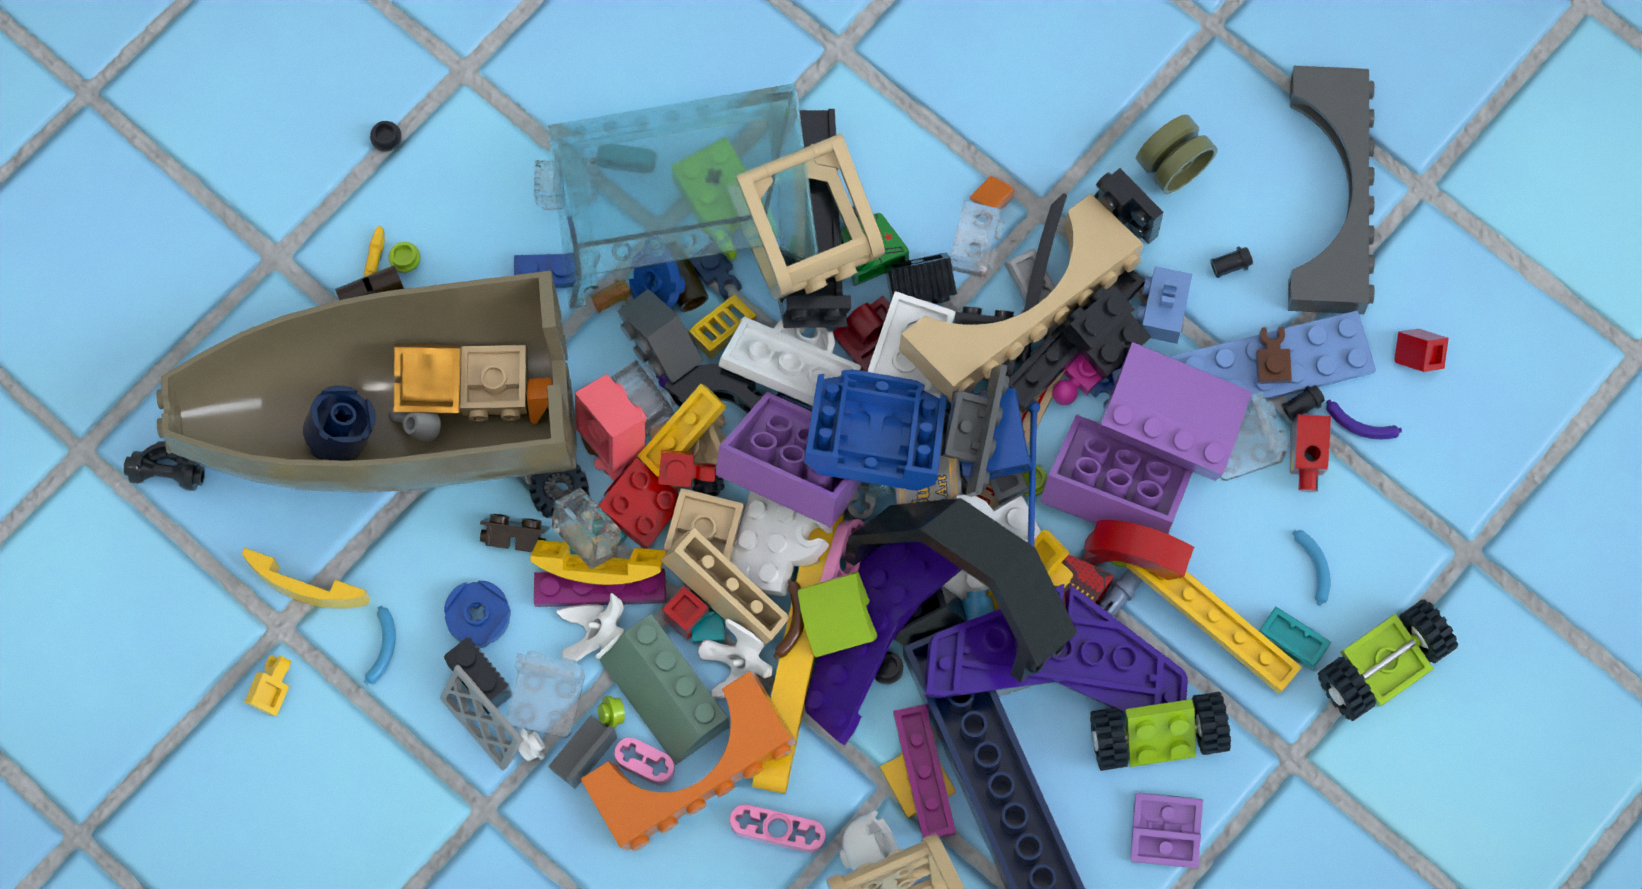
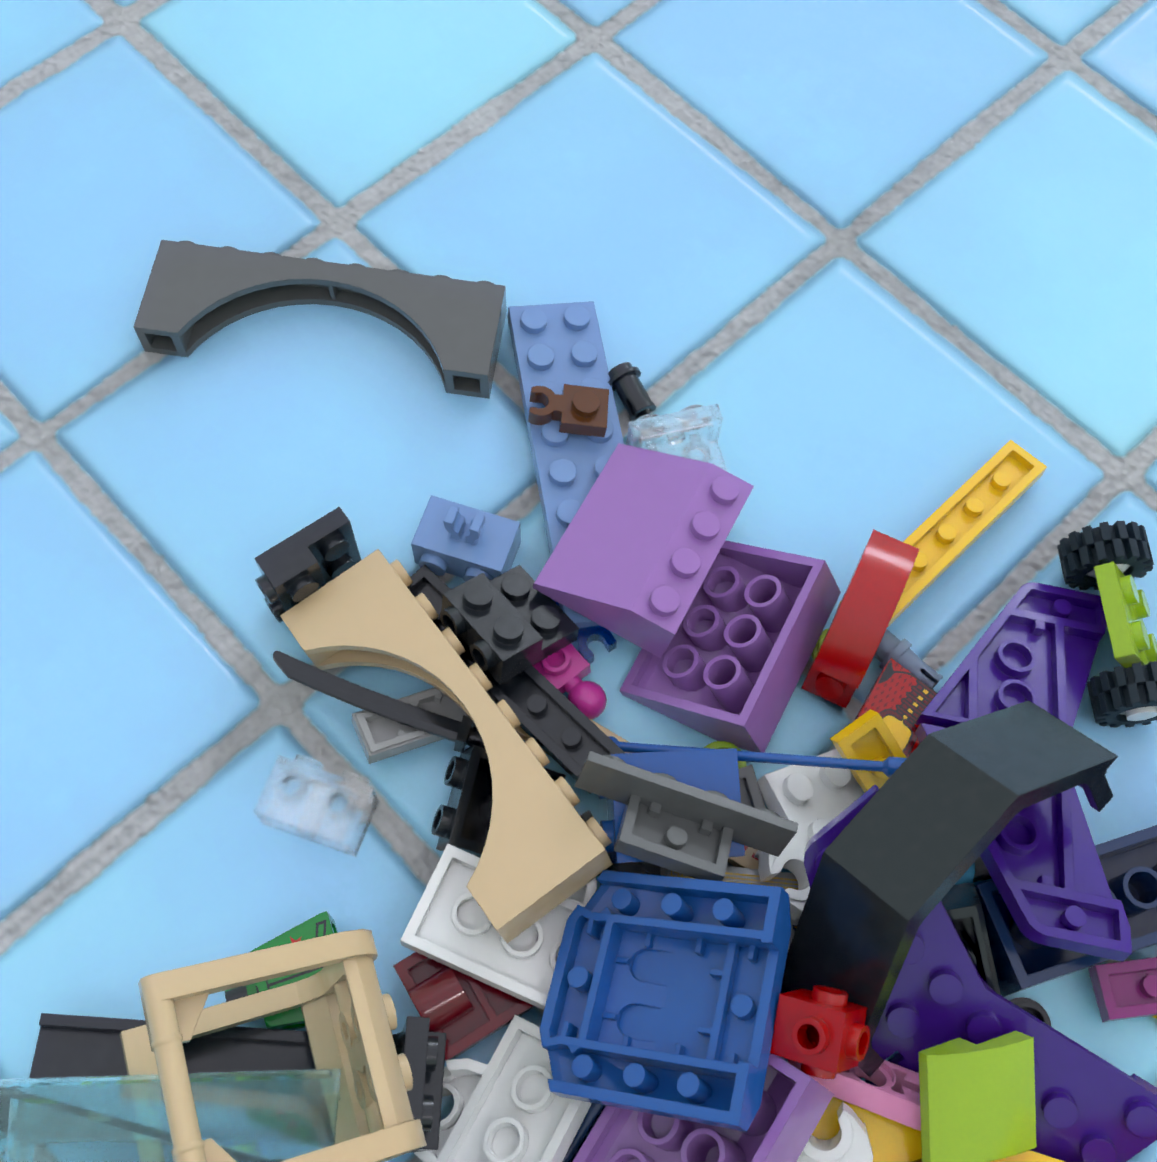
camera: 90 degrees left, 5 degrees down
(862, 506) = (820, 1031): none -> red brick
(923, 278) = (377, 891): black brick -> none
(993, 193) = (242, 772): orange slope -> none
(1176, 154) = (235, 493): olive wheel -> none
(1232, 262) = (409, 441): black pin -> none
(1295, 638) = (966, 446): teal plate -> none
(1311, 436) = (707, 377): red torso -> none
(1320, 563) = (860, 403): dark azure piece -> none
(1359, 428) = (670, 334): dark purple piece -> none
(1387, 659) = (1005, 335): plate -> none
(1421, 350) = (571, 247): red panel -> none

